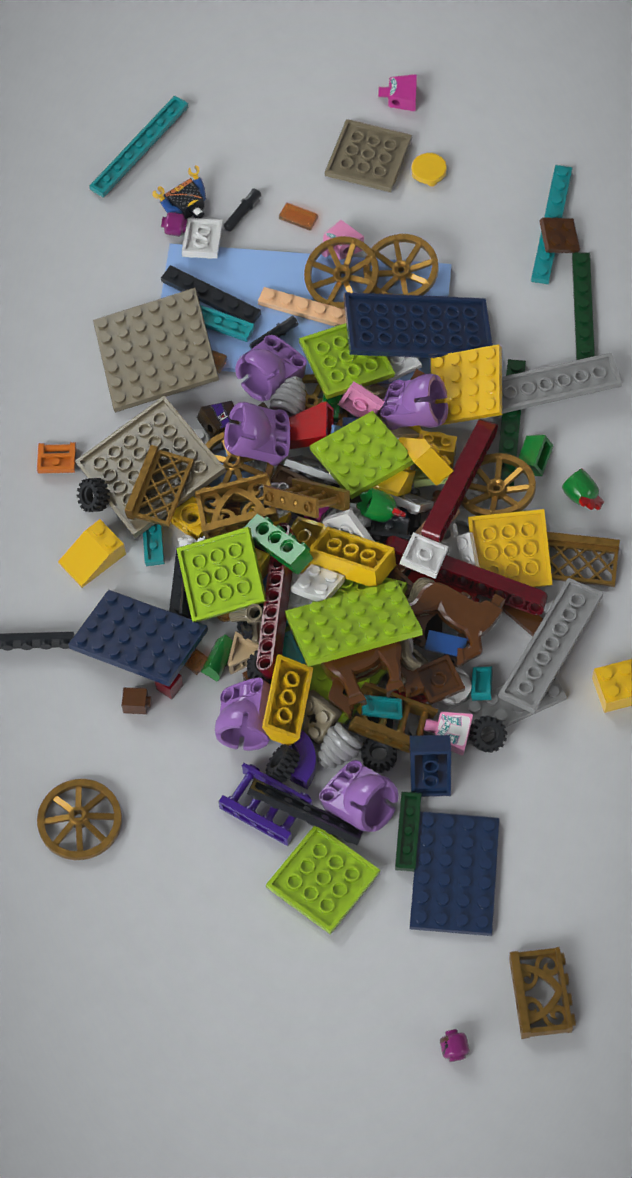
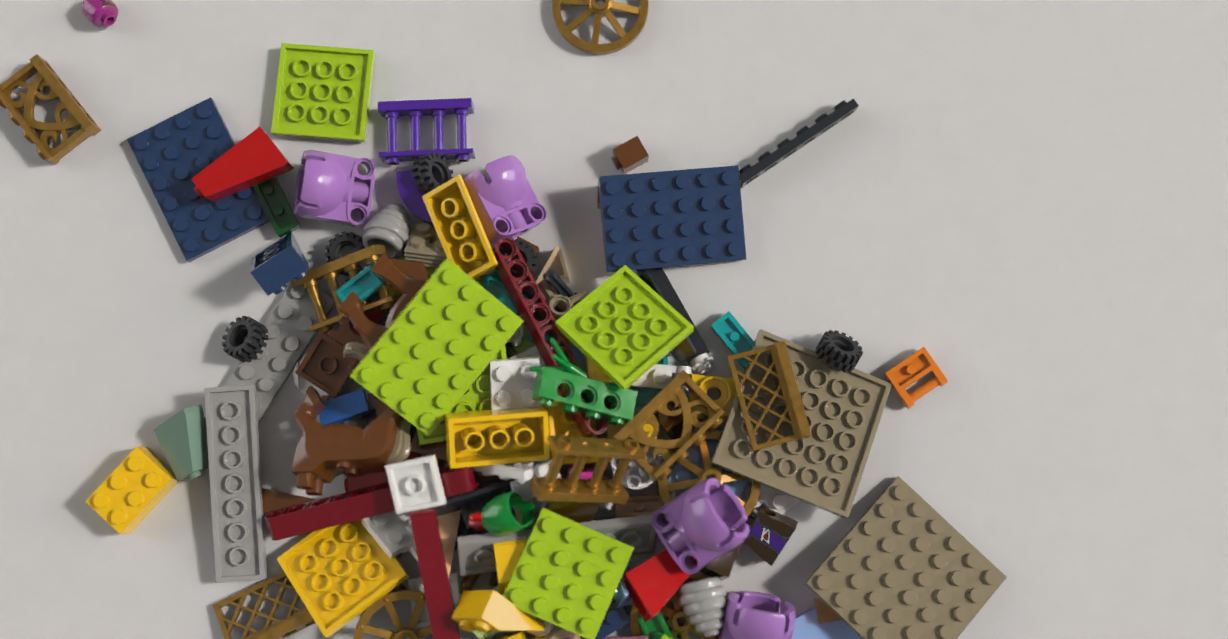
camera: 145 degrees right, 20 degrees up
(92, 553) = (792, 288): yellow slope -> none
(196, 661) = (596, 239): clear orange plate -> none
(218, 658) = (577, 251): green brick -> none
(276, 568) = (562, 360): none -> green plant
(300, 809) = (384, 136): black plate -> none
(415, 849) = (241, 167): none -> red slope
(452, 724) = (281, 315): torso -> none
(482, 683) = (284, 393): teal tile -> none
(572, 691) = (185, 443): none -> sand green slope

